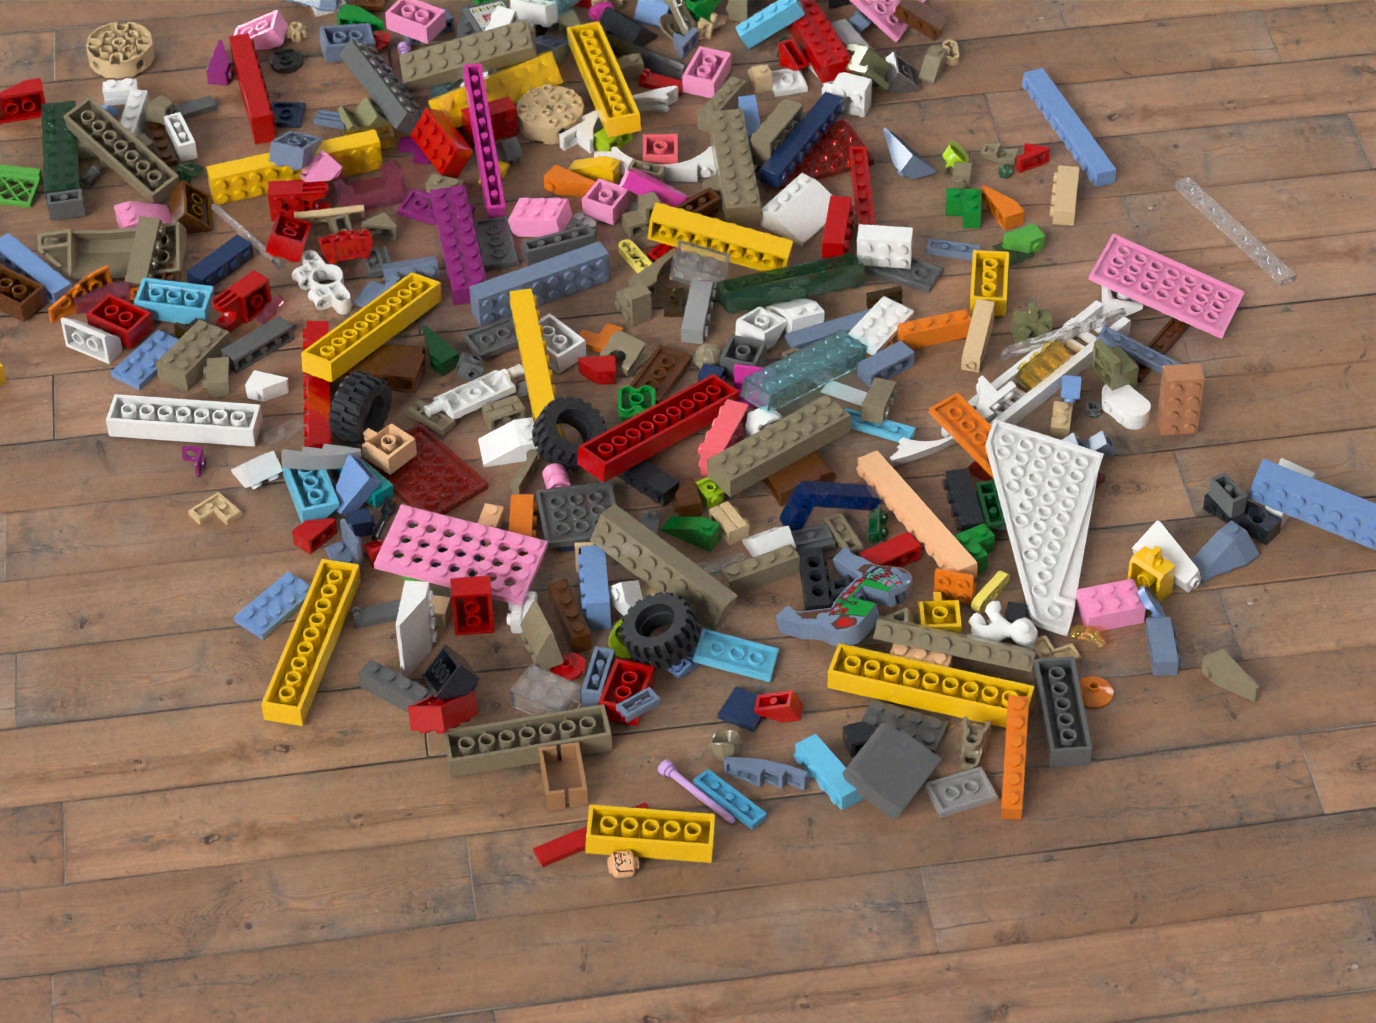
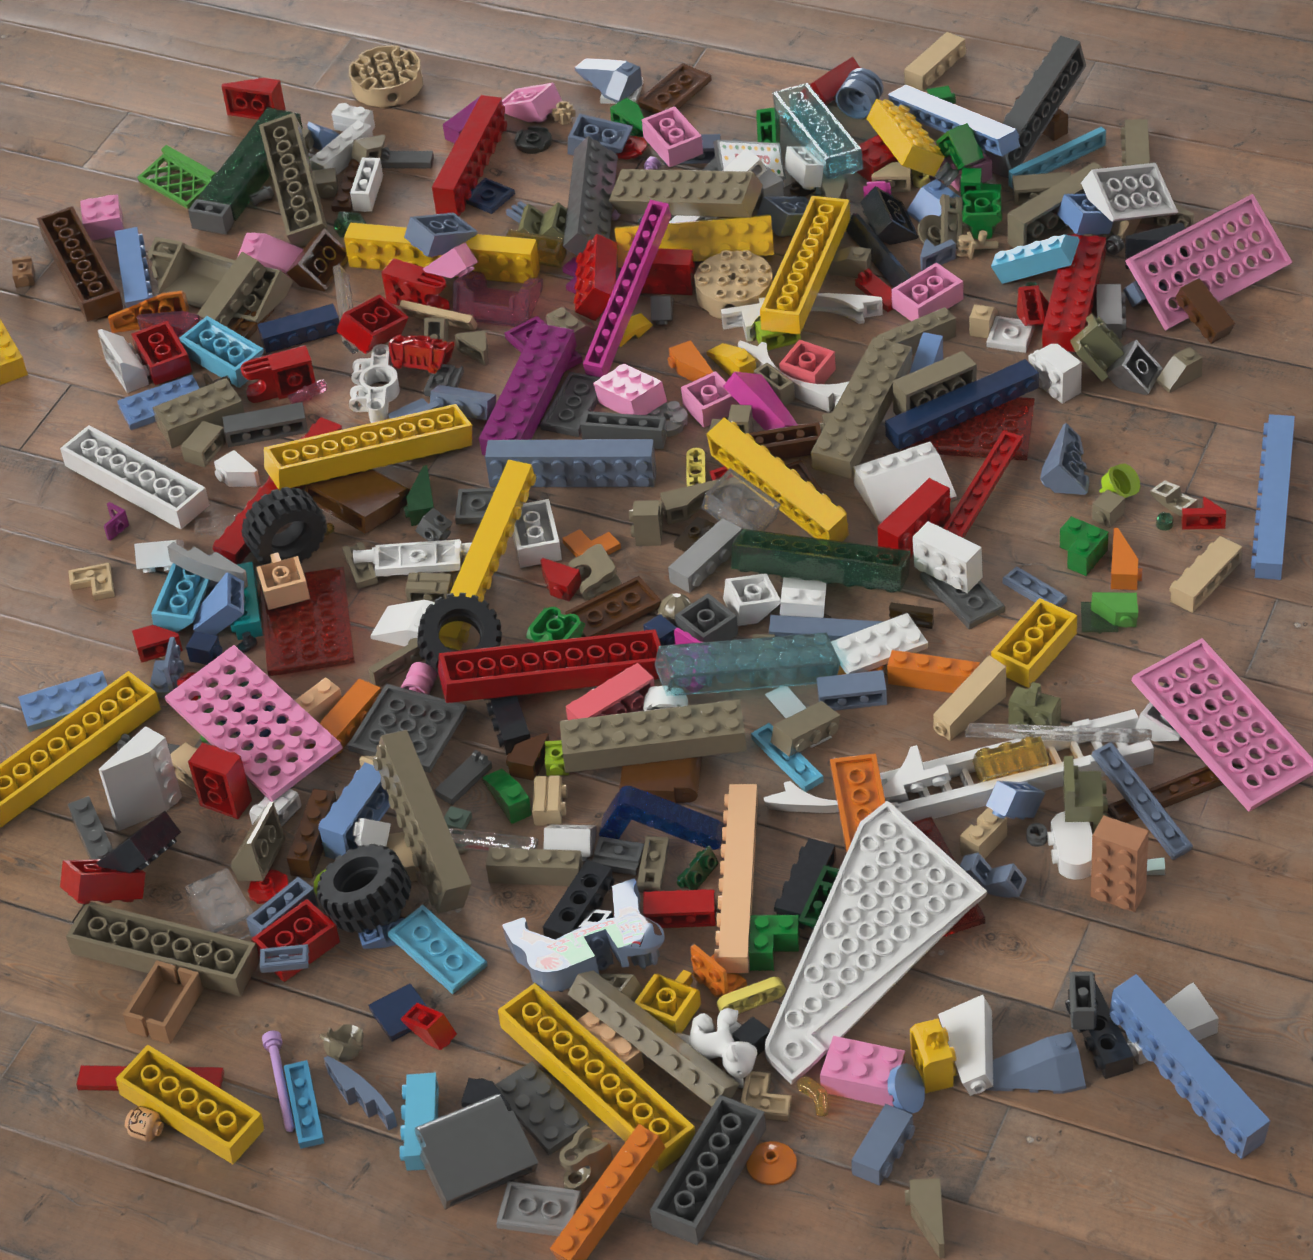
camera: 35 degrees right, 0 degrees up
(954, 52) = (1218, 364): tan beam -> none

